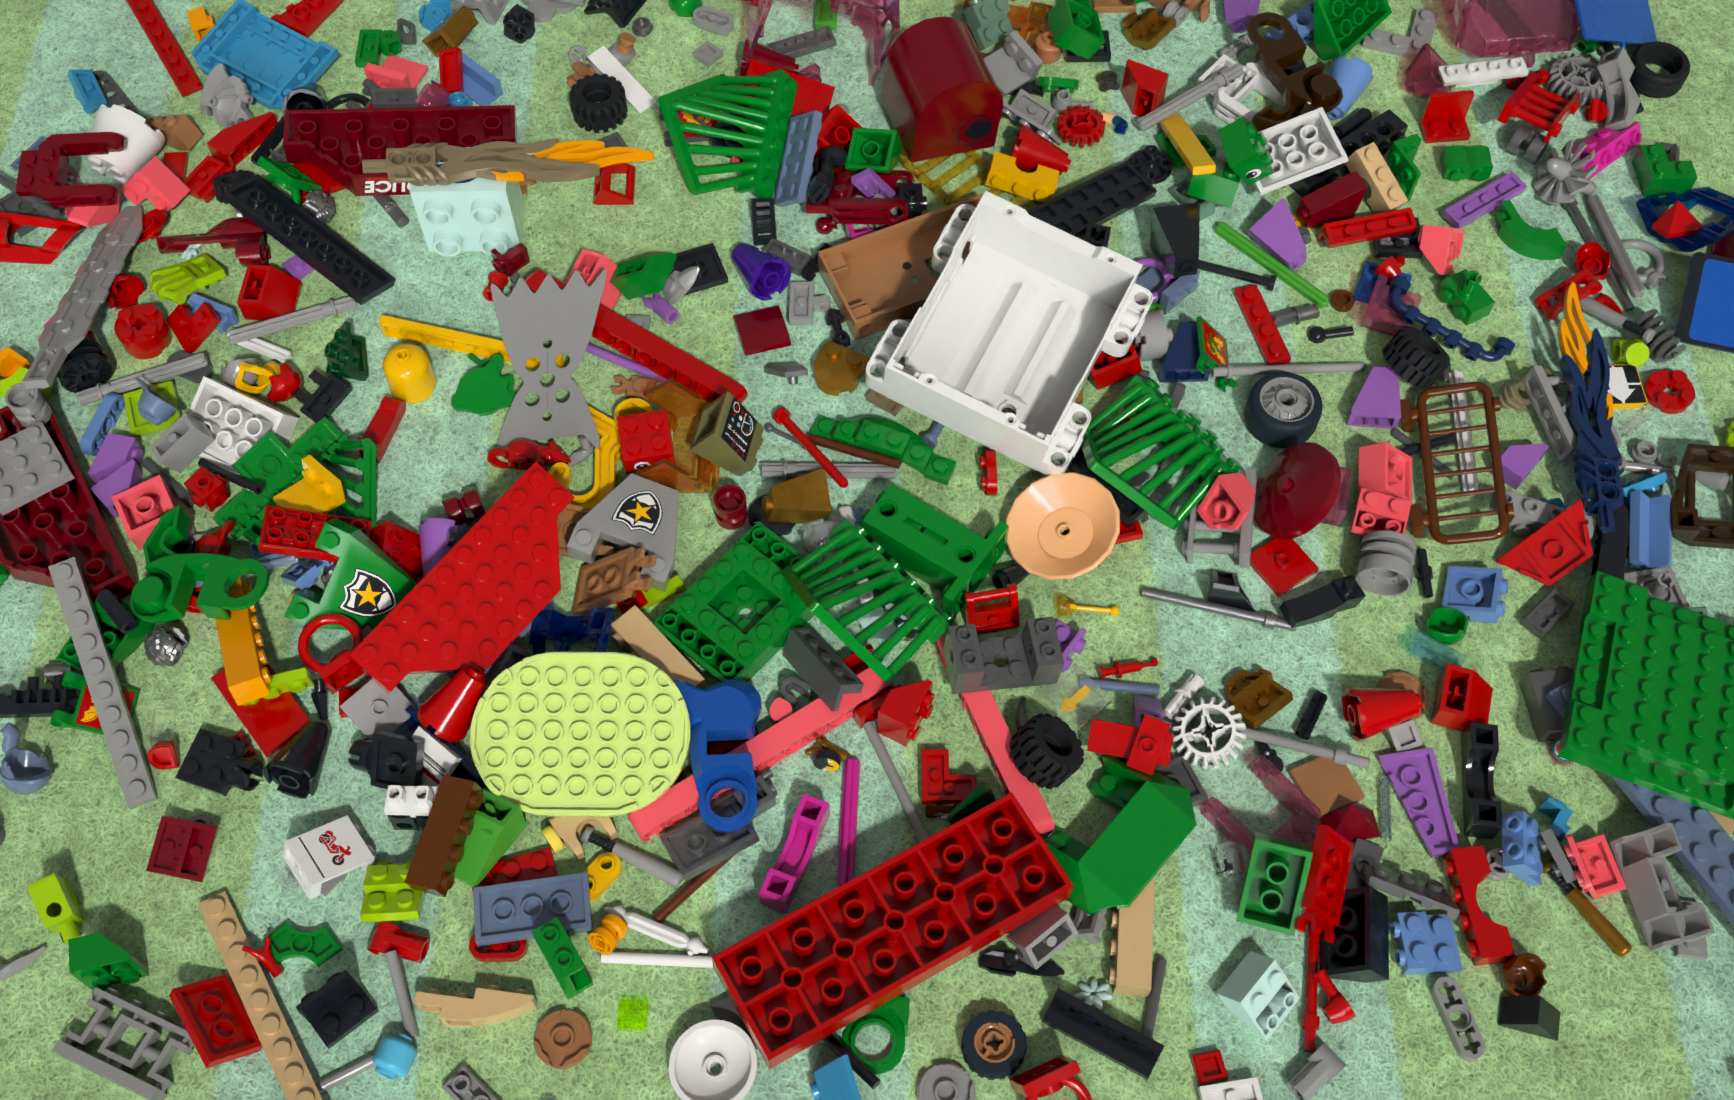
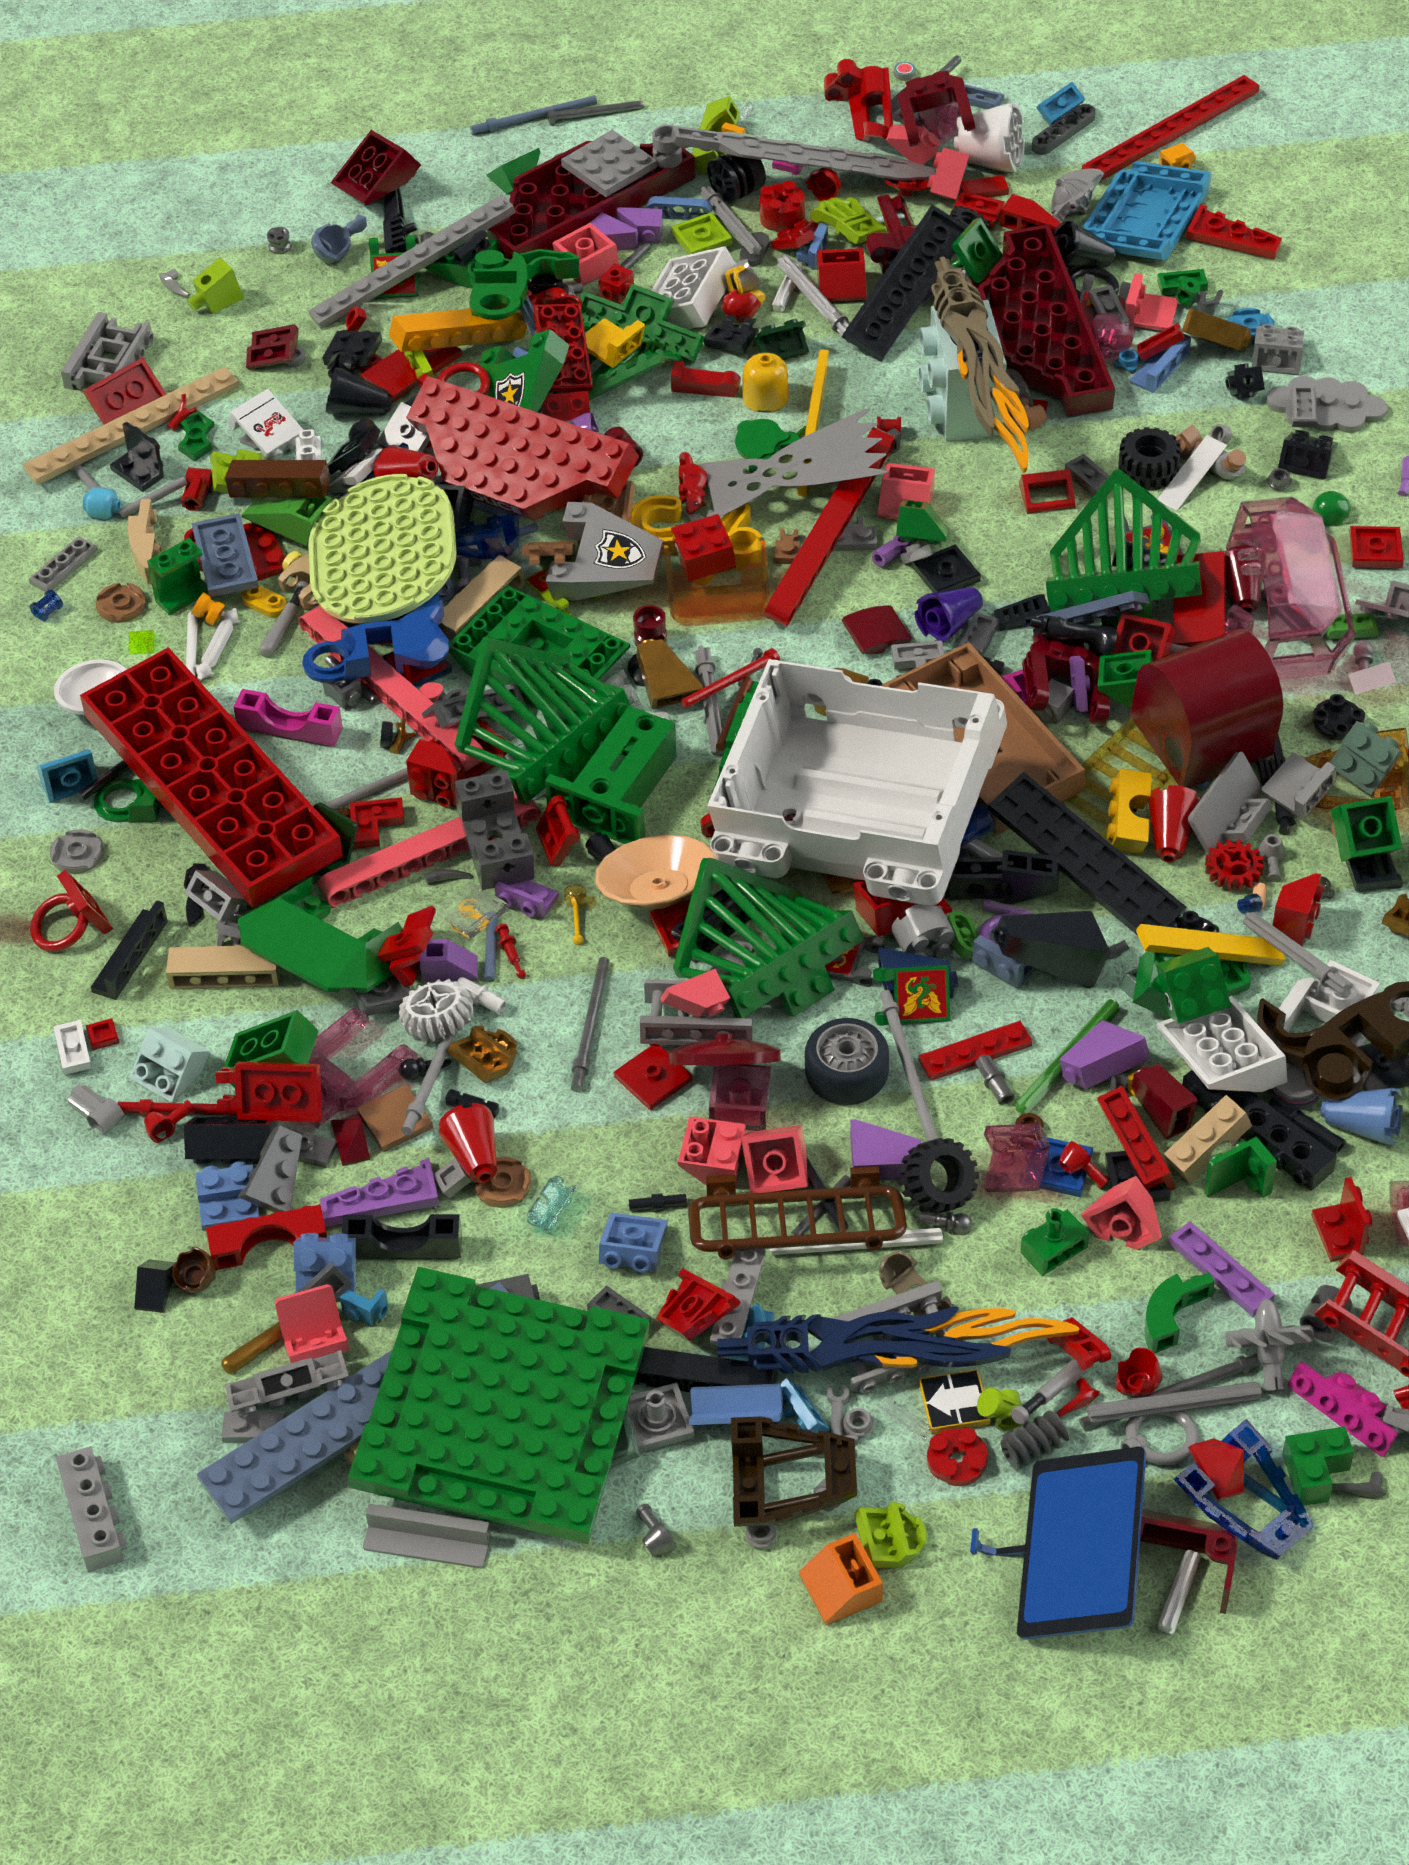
camera: 85 degrees right, 10 degrees down
(102, 963) = (169, 321): green slope -> none
(153, 406) = (698, 226): sand blue piece -> none
(165, 645) = (454, 293): flat silver piece -> none
(177, 129) = (1029, 171): medium nougat slope -> none
(182, 443) = (658, 255): light grey brick -> none
(231, 476) = (619, 299): black piece -> none
(510, 261) = (923, 432): dark red bracket -> none
(686, 892) = (265, 666): copper bar -> none
(699, 847) = (287, 656): flat silver plate -> none
(728, 435) = (723, 608): olive slope -> none
(790, 370) = (827, 654): flat silver piece -> none
(848, 826) = (331, 758): dark pink axle -> none
(913, 196) = (1074, 721): black brick -> none
(994, 1045) = (113, 888): black wheel -> none
(1046, 751) = (418, 866): black tyre -> none
(1049, 84) = (1289, 828): green plate -> none
(1094, 994) = (165, 942): light aqua plant -> none
(1154, 997) = (163, 990): dark grey bar -> none
(1226, 590) = (612, 1025): black slope -> none
(1238, 274) = (1039, 1054): black bar -> none
(1318, 334) = (975, 1105): black bar -> none
(1323, 603) = (602, 1104): black slope -> none
(1386, 563) = (652, 1150): light grey wheel -> none
(1389, 810) = (344, 1167): sand blue piece -> none
(1451, 337) = (997, 1203): dark blue bar -> none
(1451, 621) = (585, 1212): green hair -> none
(1461, 698) = (495, 1225): red slope -> none
(1466, 163) = (1278, 1248): green brick -> none
(1474, 1036) = (170, 1209): light grey beam -> none
(1520, 461) = (814, 1288): medium lavender slope -> none

